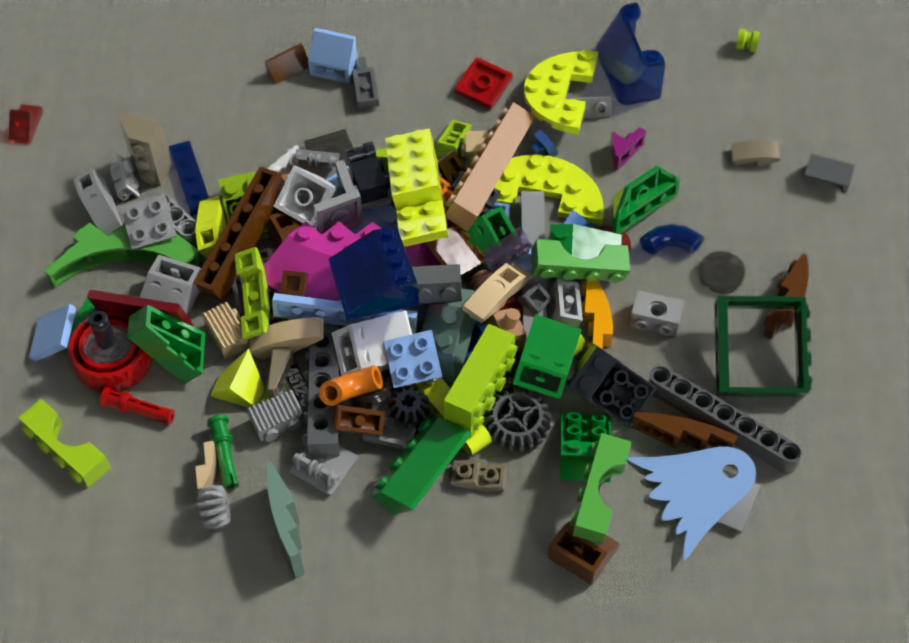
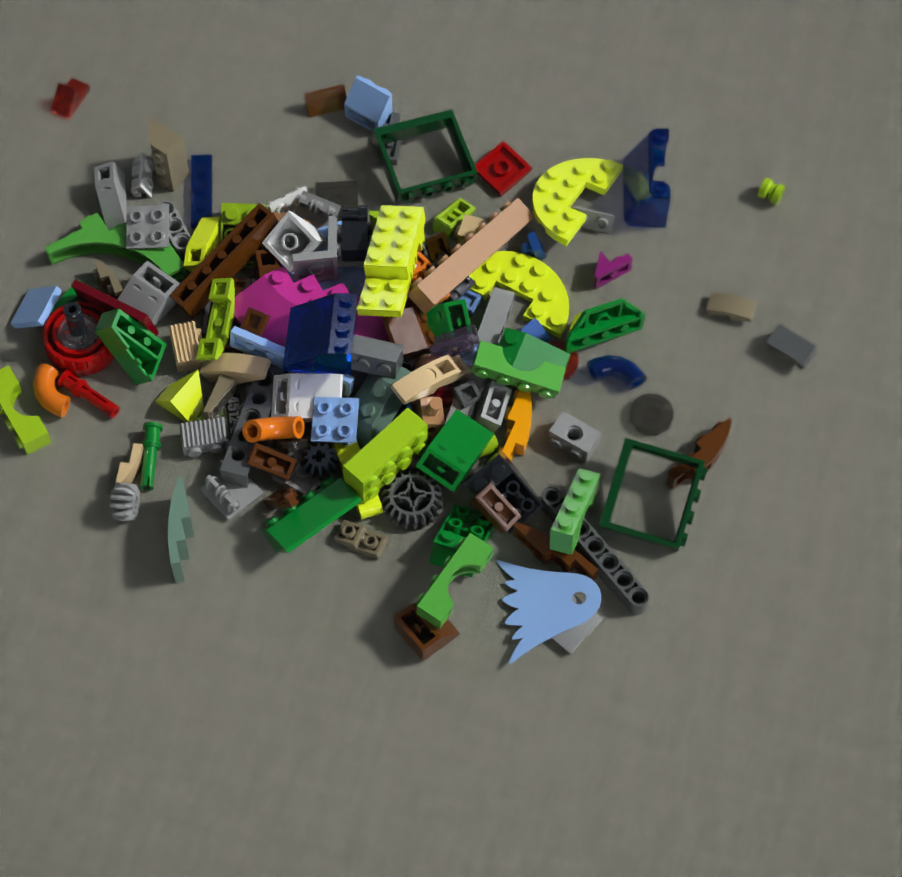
camera: 15 degrees right, 5 degrees up
(90, 417) = (46, 392): none -> orange cylinder
(119, 284) = (107, 279): none -> dark tan slope
(383, 455) = (282, 498): none -> reddish brown hinge
(392, 61) = (416, 127): none -> dark green window
(610, 404) = (496, 508): none -> reddish brown slope
(692, 384) = (569, 520): none -> bright green arch

